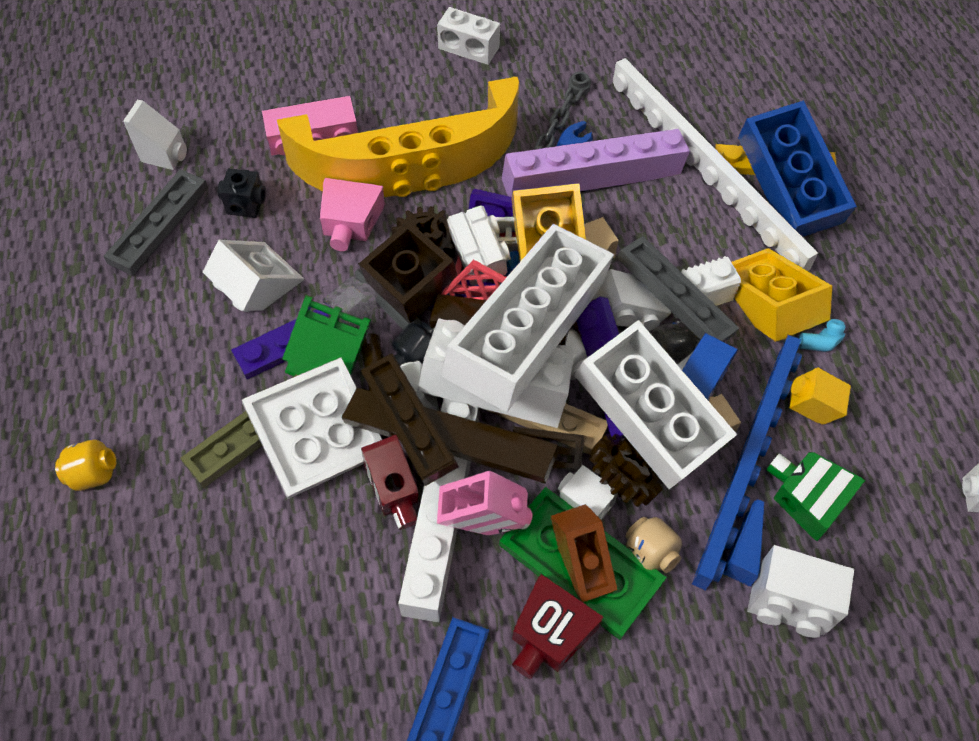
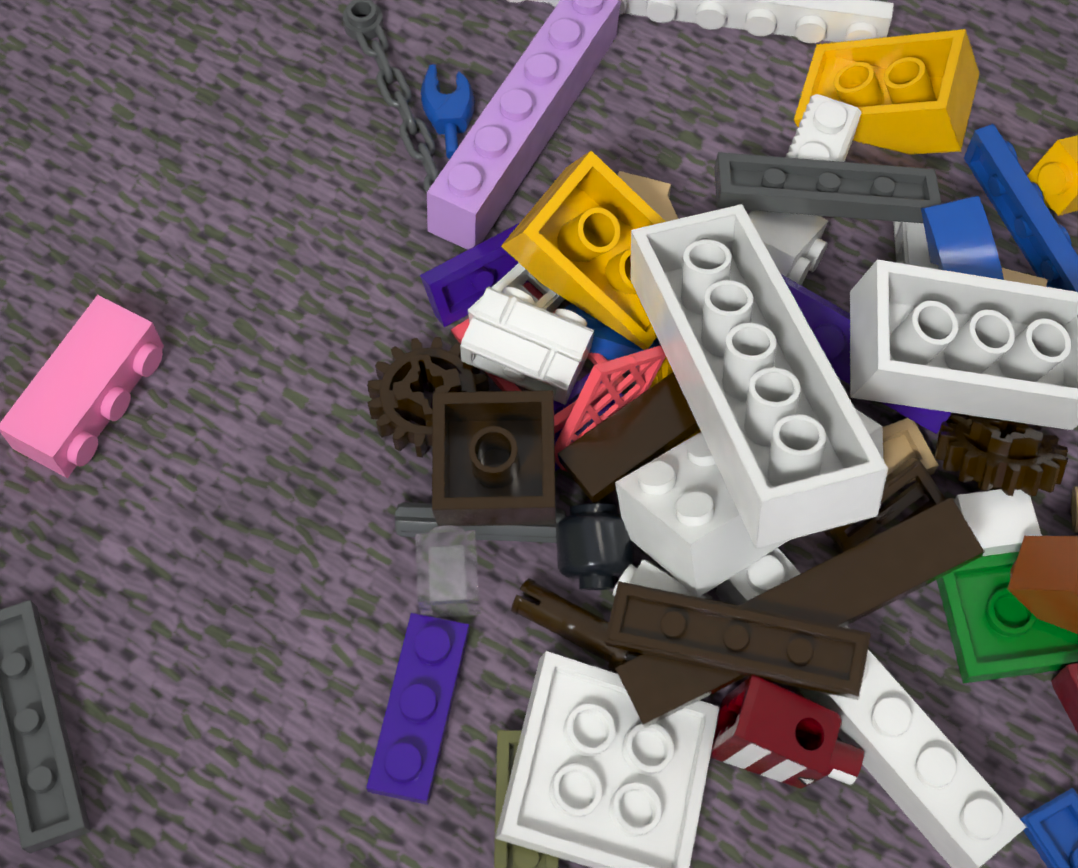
camera: 45 degrees left, 5 degrees up
(242, 193) = (110, 567): black brick -> none
(250, 274) = (265, 665): white slope -> none
(323, 339) = (486, 655): green plate -> none
(349, 211) = (286, 455): bright pink torso -> none
(408, 155) = (275, 325): yellow slope -> none
(468, 35) = (146, 71): white brick -> none
(484, 504) = (950, 646): bright pink torso -> none
(676, 340) = (859, 246): clear smoke head -> none
(826, 339) = (995, 96): medium azure arm -> none

